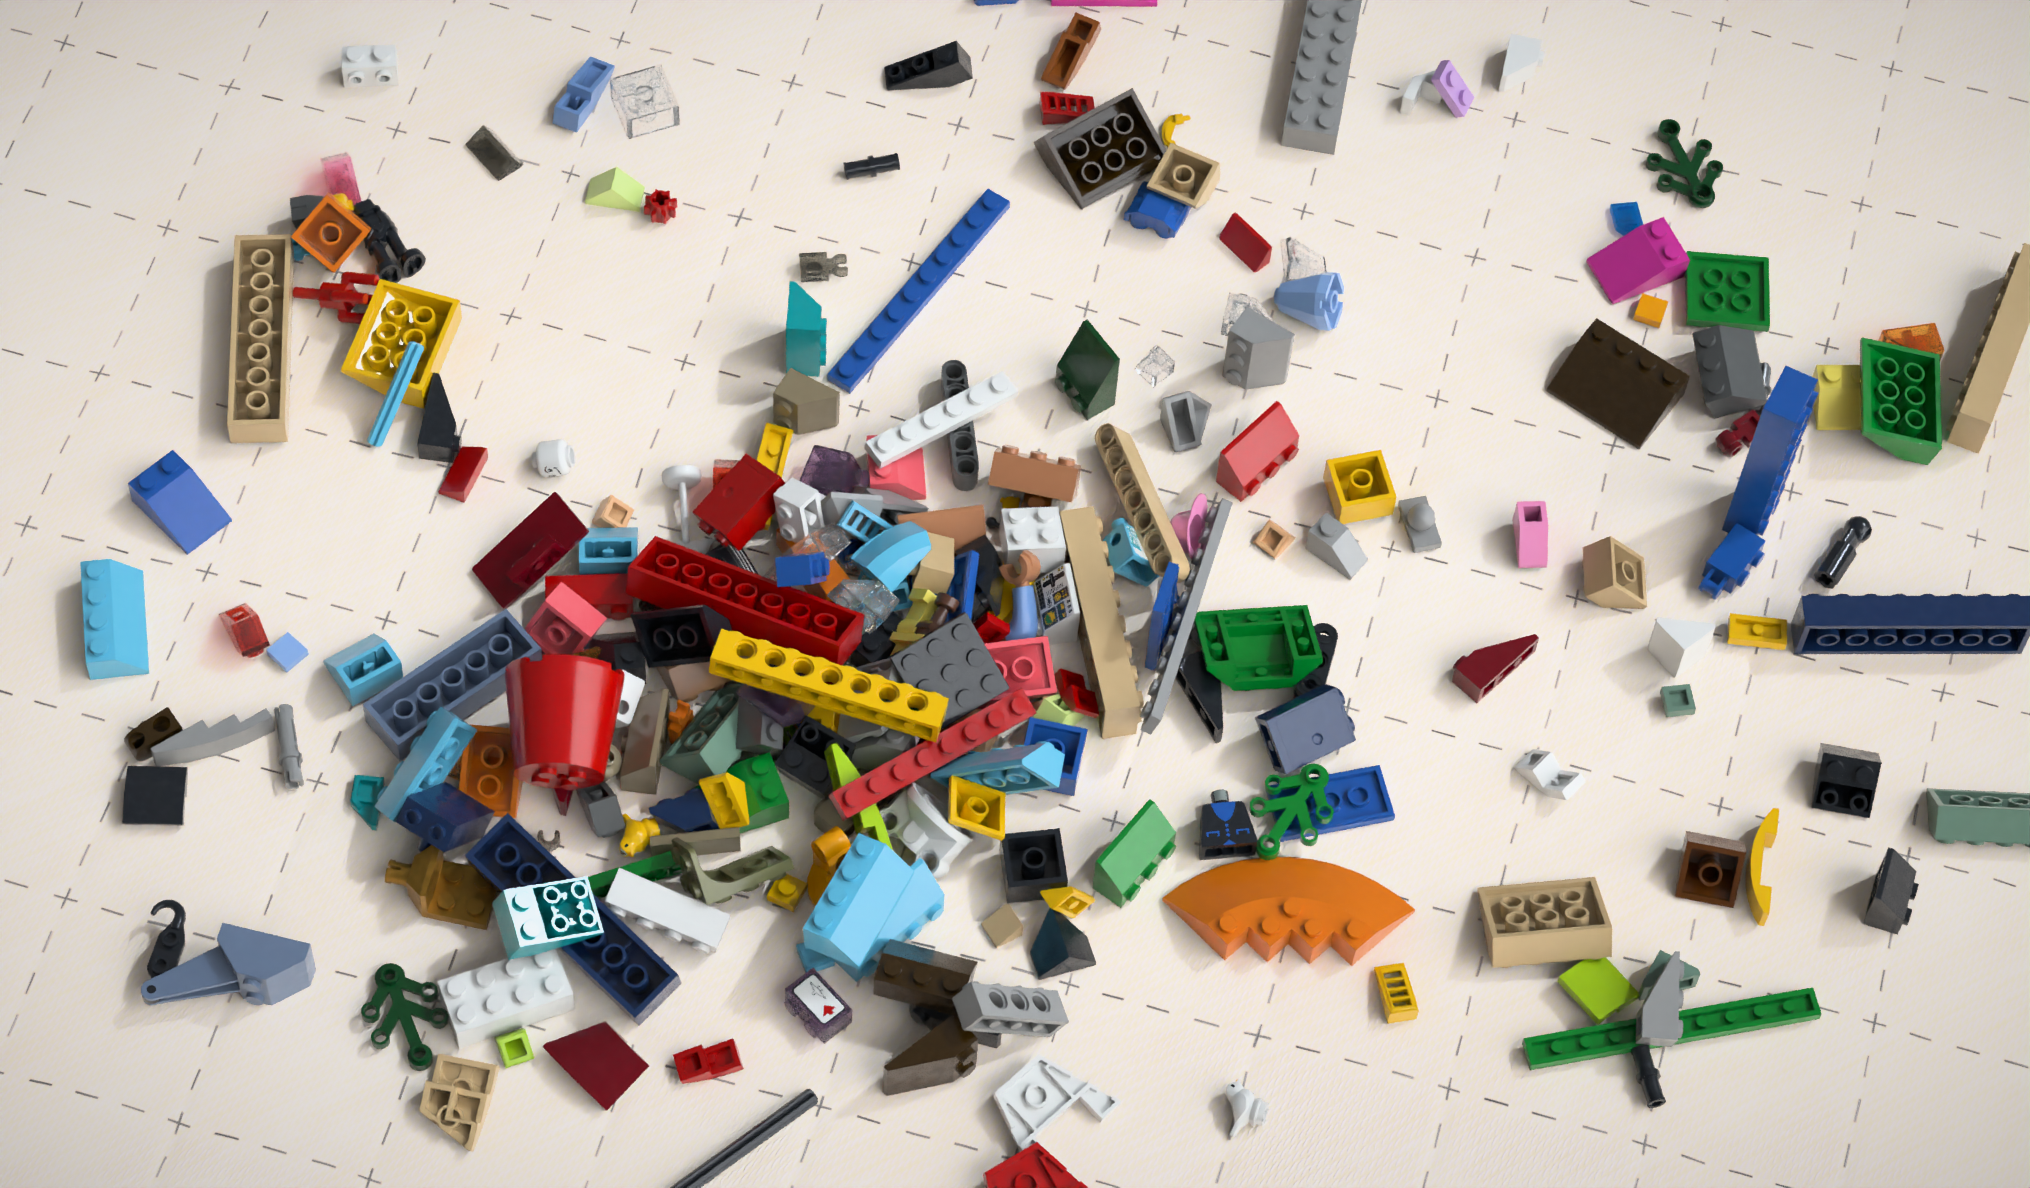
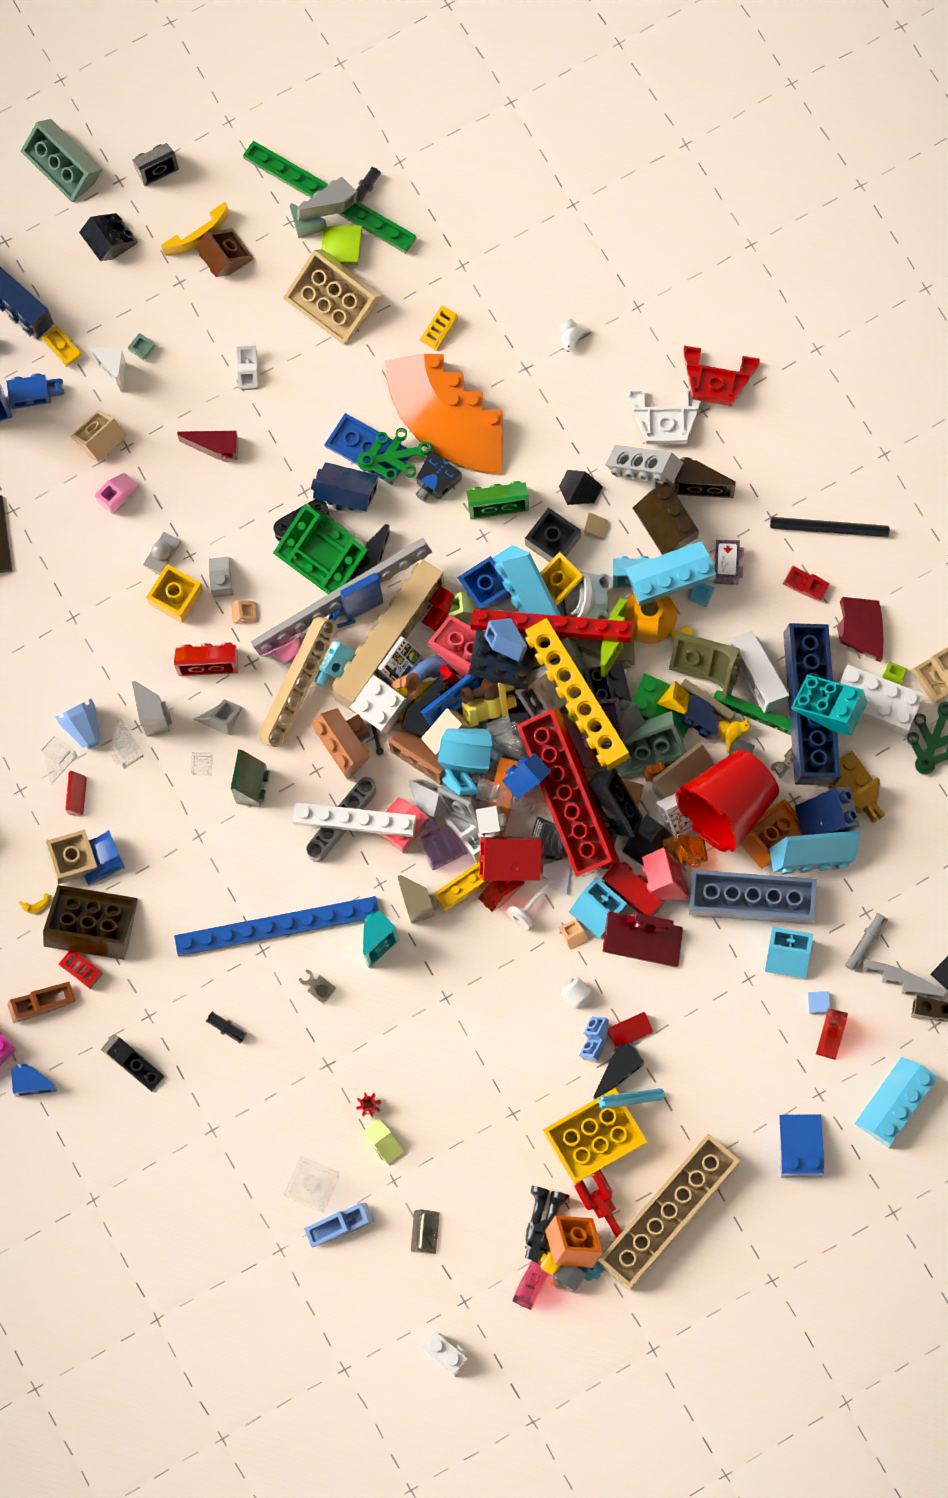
camera: 125 degrees left, 15 degrees up
(364, 798) = (849, 878): teal tile -> none
(487, 429) = (596, 1033): none -> medium blue slope
(966, 686) = (505, 638): none -> medium blue slope
(1067, 900) = (557, 501): yellow slope -> none

